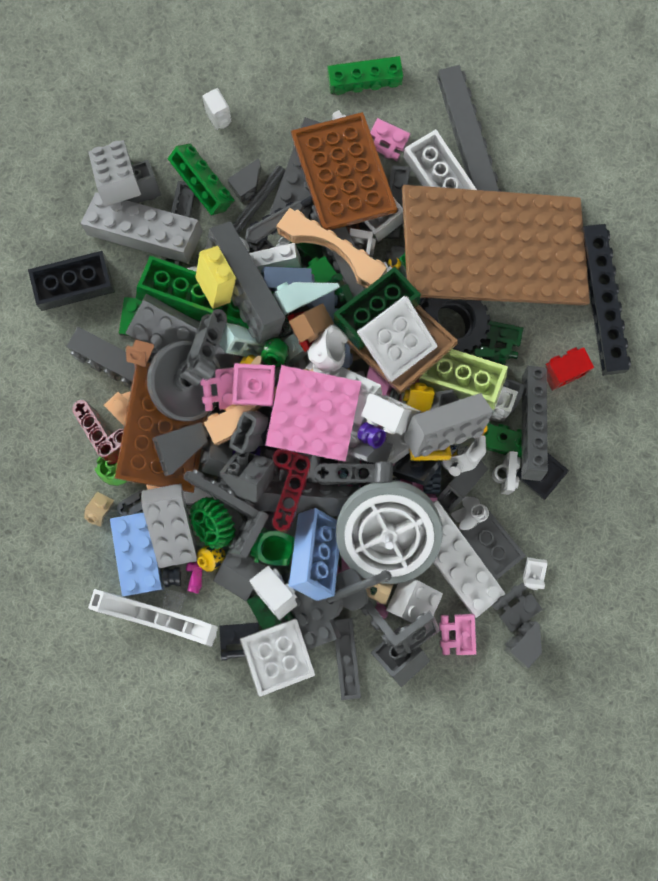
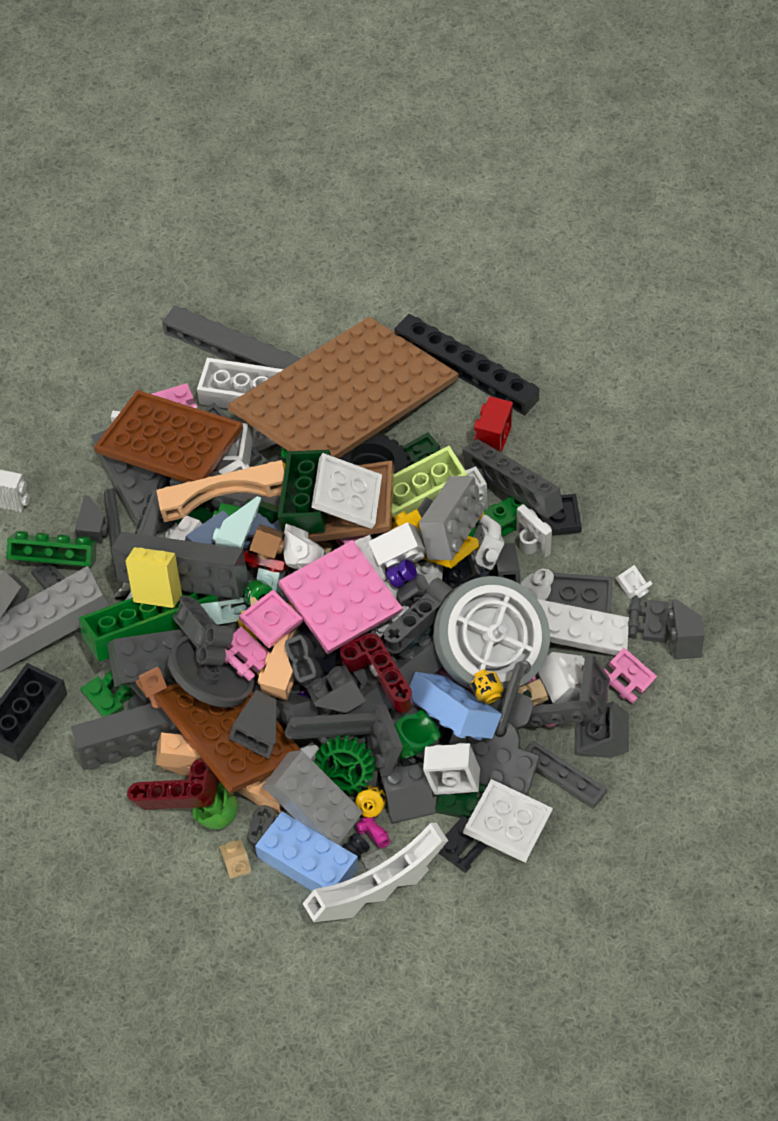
camera: 40 degrees left, 25 degrees down
(344, 568) = (487, 686): none -> yellow head
(365, 75) = (105, 374): green brick -> none

